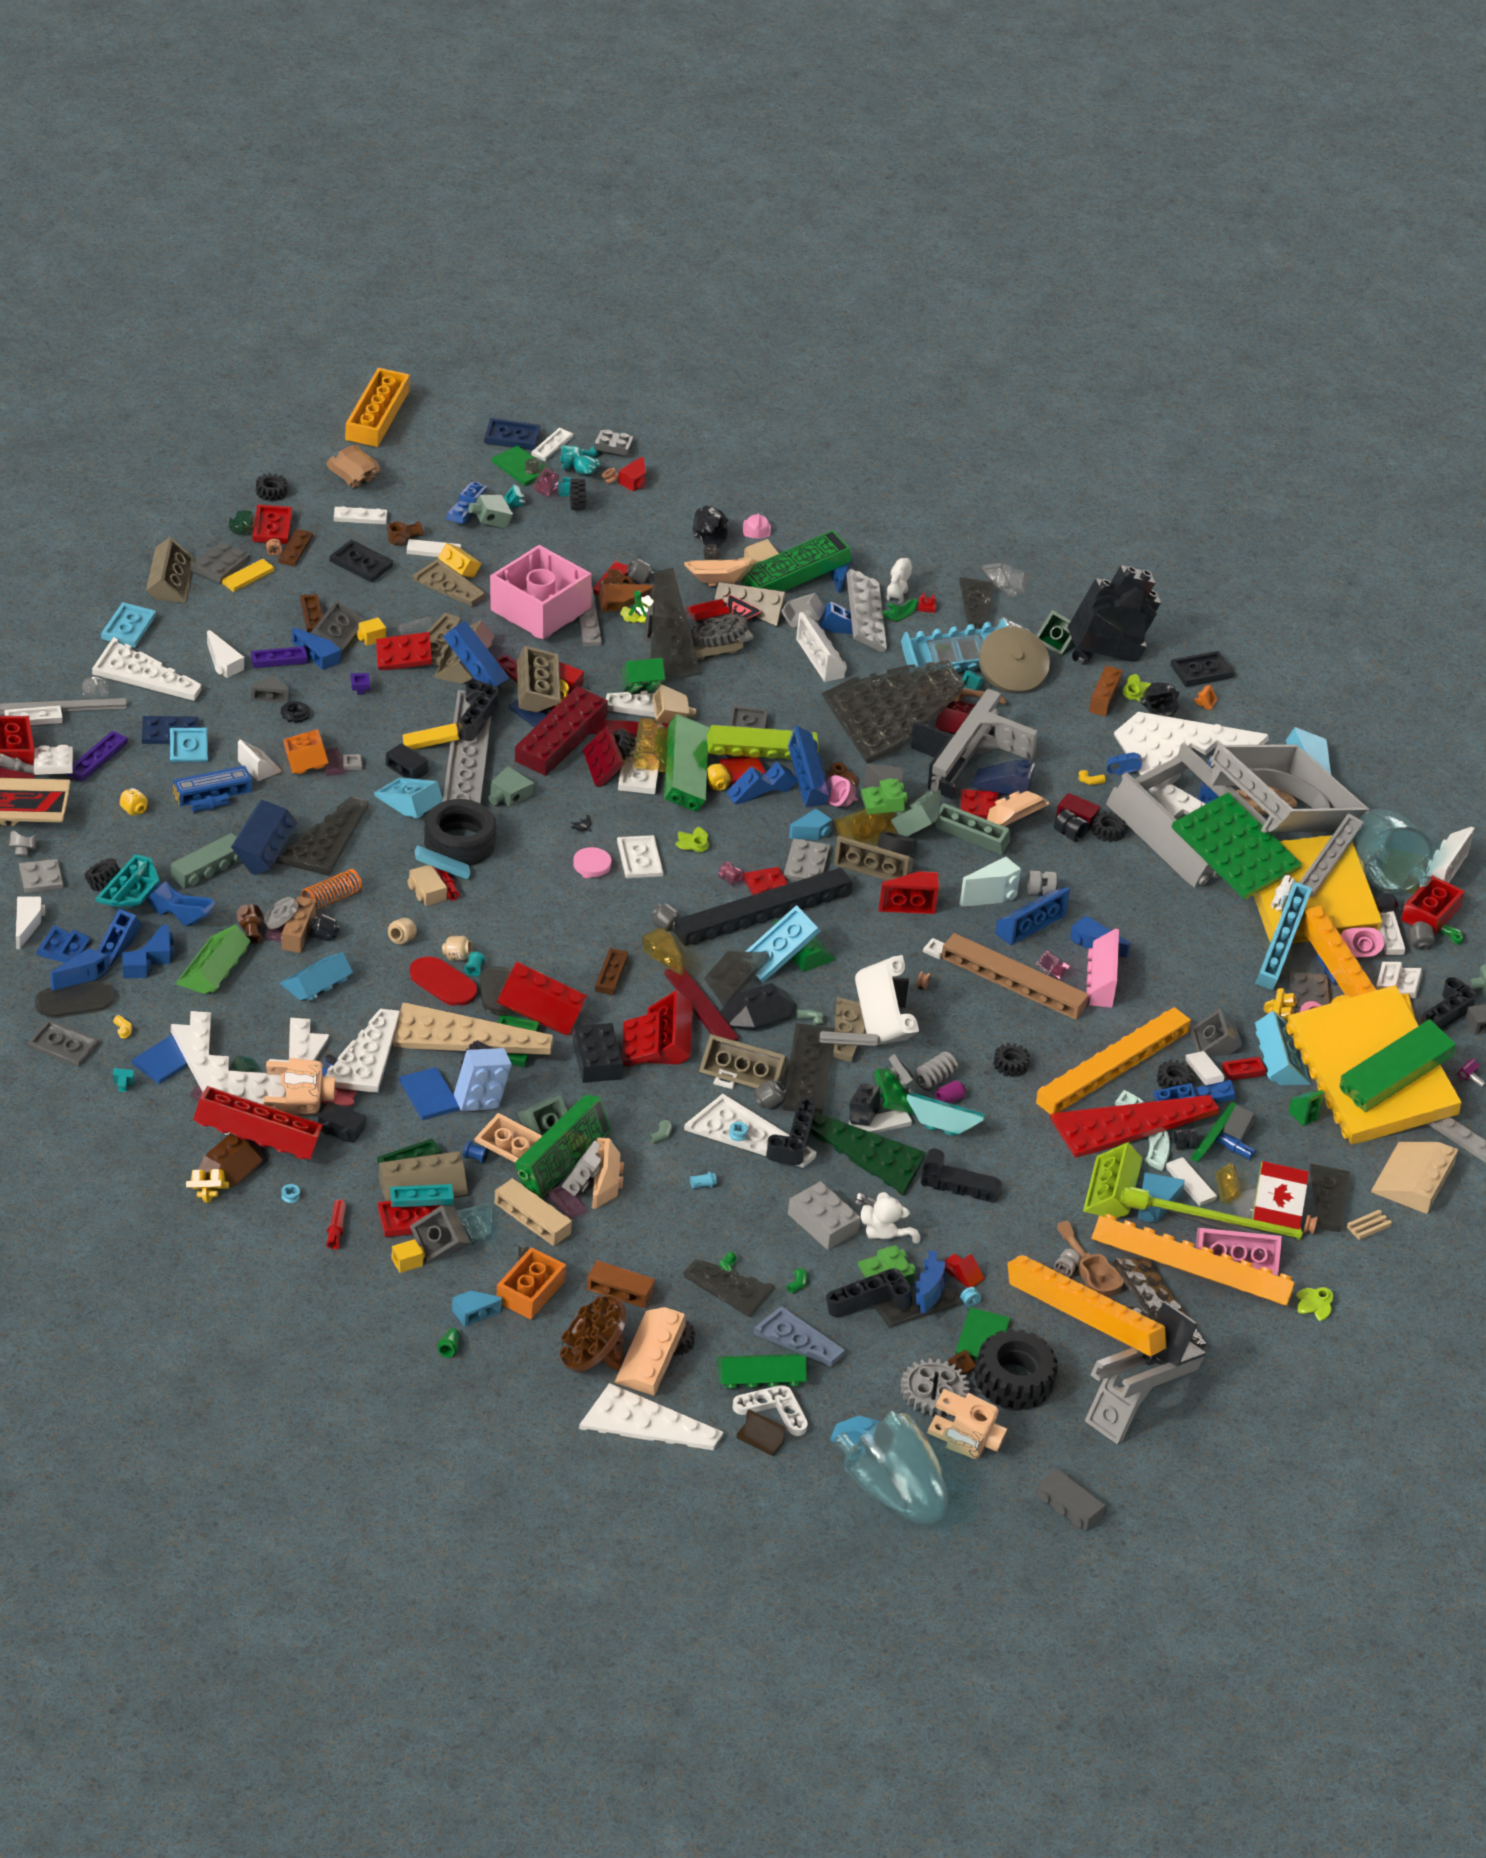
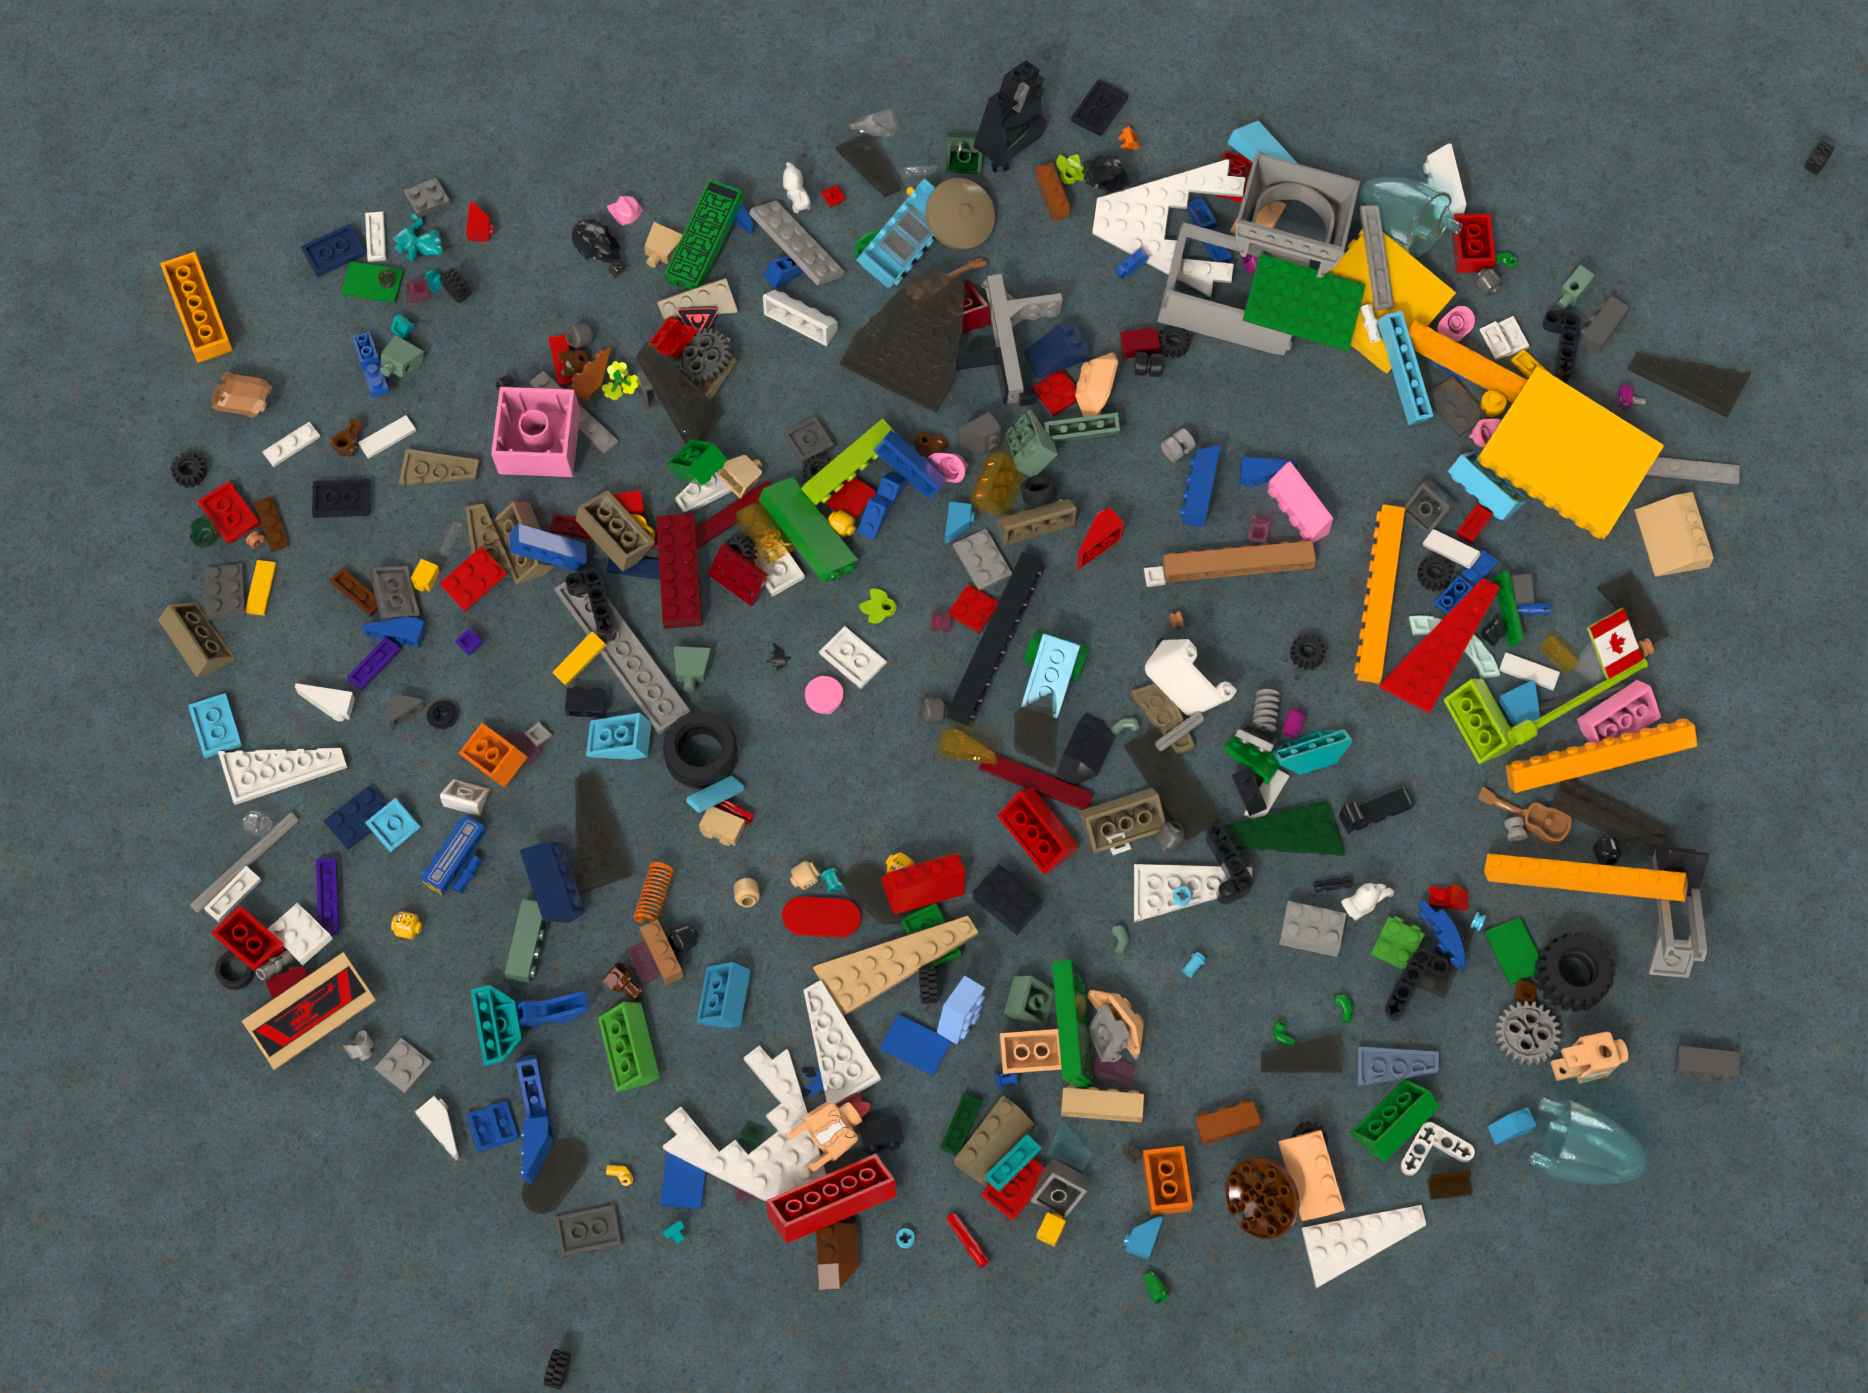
camera: 35 degrees left, 25 degrees up
(101, 874) = (450, 1024): black tyre -> none
(154, 952) = (576, 1072): blue arch -> none
(216, 1182) = (842, 1289): yellow hips -> none
(282, 912) = (641, 955): light grey tile -> none
(459, 560) = (426, 438): yellow brick -> none
(610, 475) = (453, 239): nougat bush -> none
(611, 971) = (940, 801): reddish brown plate -> none
(642, 1039) = (1027, 857): red plate -> none
(719, 570) = (648, 288): light nougat wedge -> none
(807, 604) = (752, 284): light grey panel -> none
(885, 798) = (1001, 455): bright green plate -> none
(899, 613) = (820, 224): green piece -> none
(972, 680) = (943, 261): teal tile -> none
(991, 884) = (1152, 472): light aqua slope -> none
(1090, 780) = (1110, 299): yellow arm -> none
(1281, 1004) = (1449, 430): yellow hips -> none
(1306, 1107) = (1551, 530): green slope -> none
(1312, 1302) = (1708, 725): lime plate -> none
(1368, 1221) = (1685, 599): tan tile -> none
(1385, 902) = (1437, 265): black head -> none
(1391, 934) = (1463, 294): white plate -> none
(1397, 1065) = (1599, 448): green brick -> none

